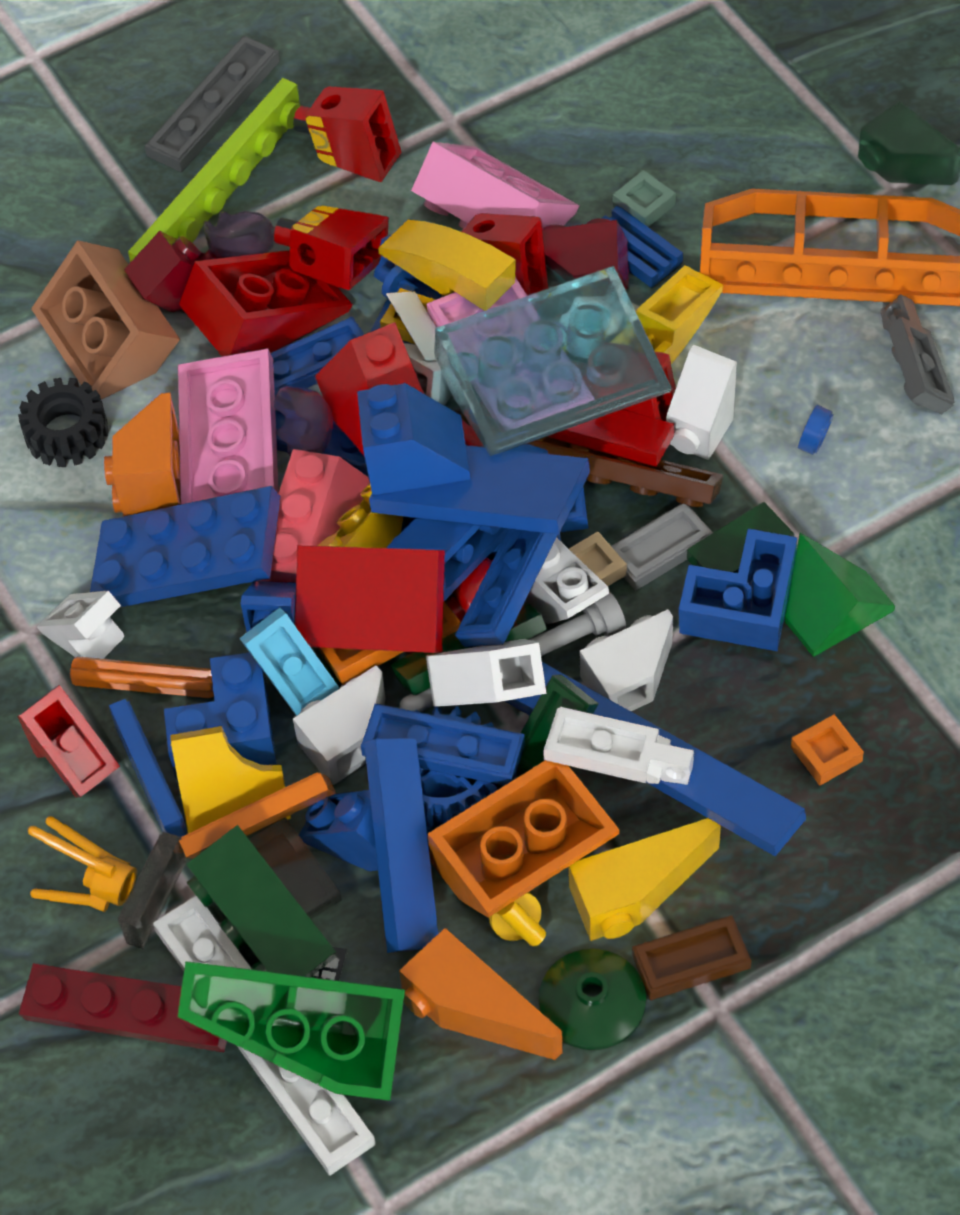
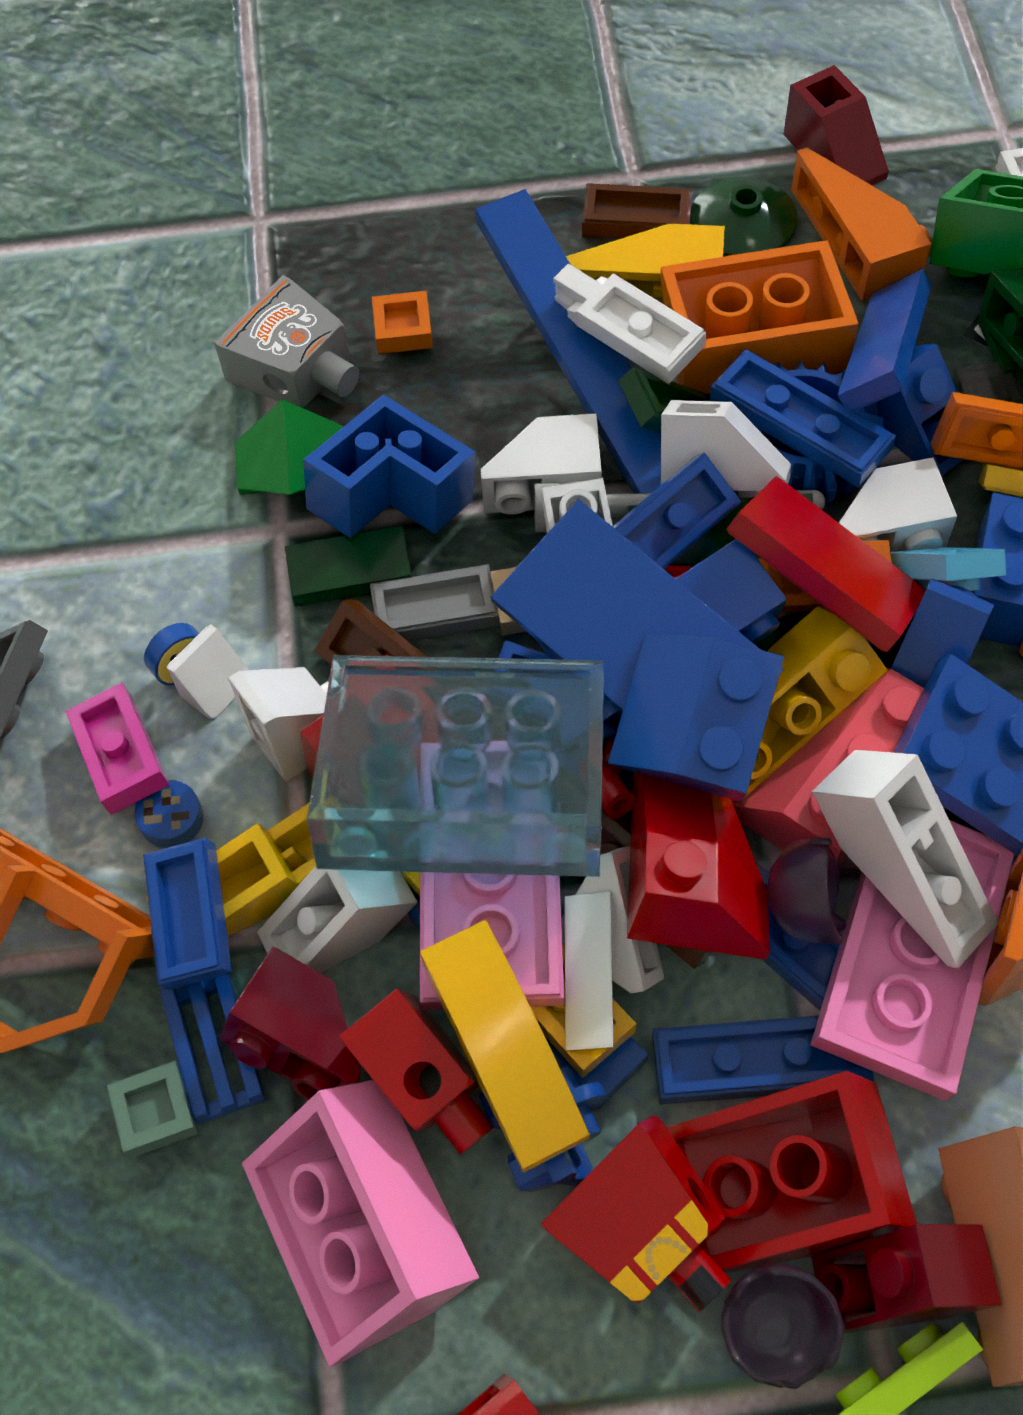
camera: 155 degrees left, 5 degrees up
(253, 442) = (907, 848): none -> white slope
(540, 1090) = (835, 122): none -> dark red slope
(686, 276) = (187, 914): none -> blue tile
(751, 346) = (169, 815): none -> blue tile
(784, 431) = (203, 672): none -> white slope
(809, 357) = (116, 748): none -> dark pink plate
(900, 684) = (287, 347): none -> light grey torso

